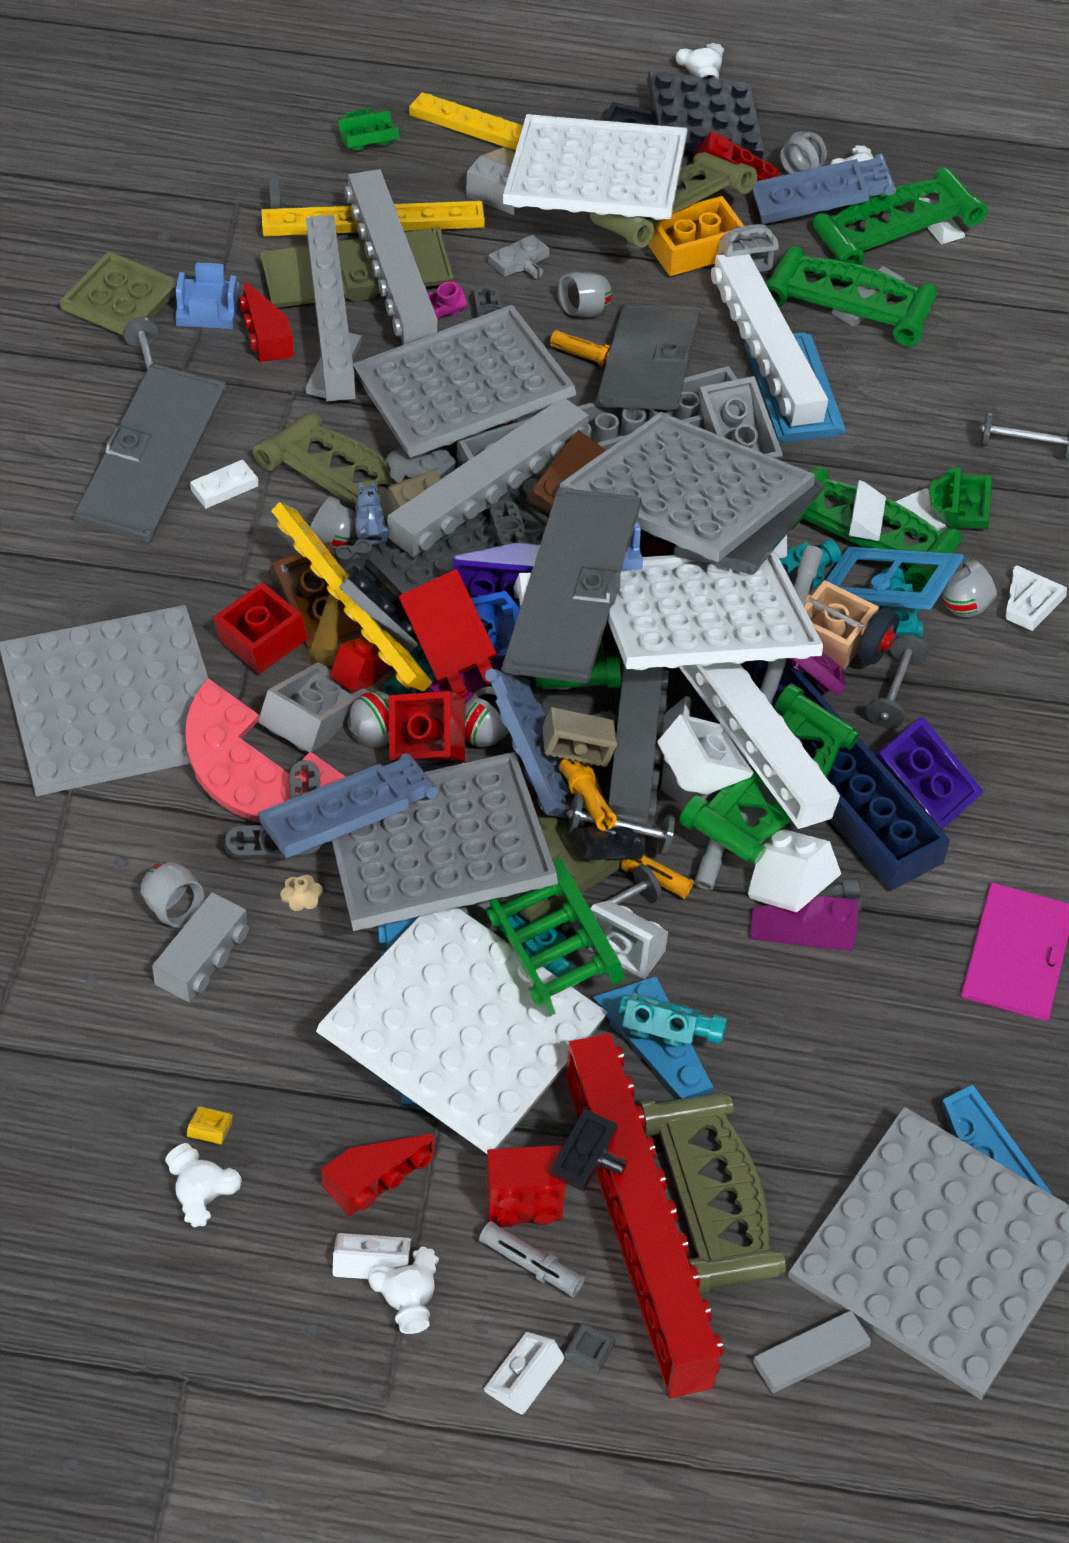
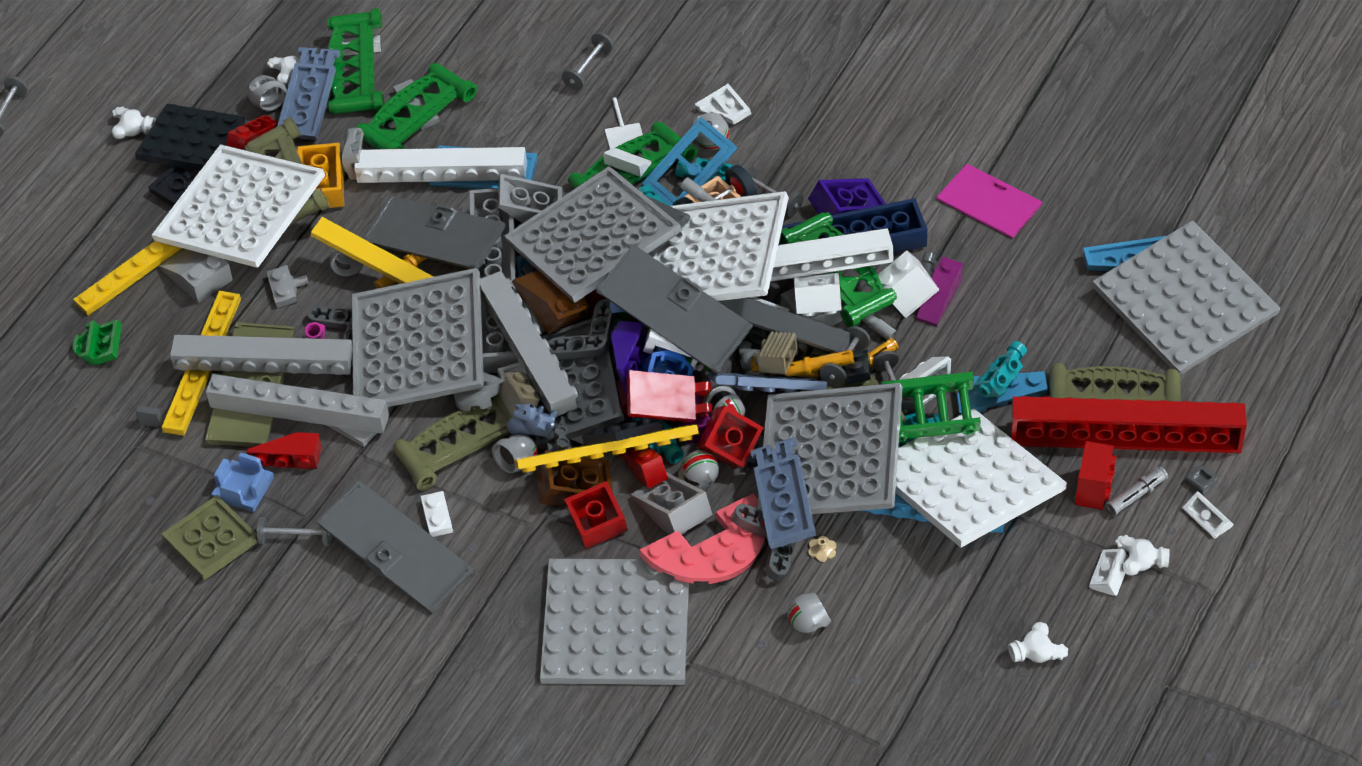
camera: 65 degrees left, 0 degrees up
(200, 947) = (855, 608): light grey brick -> none
(209, 1125) = (994, 633): yellow tile -> none
(326, 637) = (619, 480): clear yellow slope -> none
(371, 1169) = (1056, 559): red slope -> none
(578, 306) = (366, 252): none -> yellow tile
(587, 1151) = (1098, 426): black plate -> none
(811, 1351) = (1231, 376): light grey tile -> none
(962, 499) = (630, 111): green slope -> none

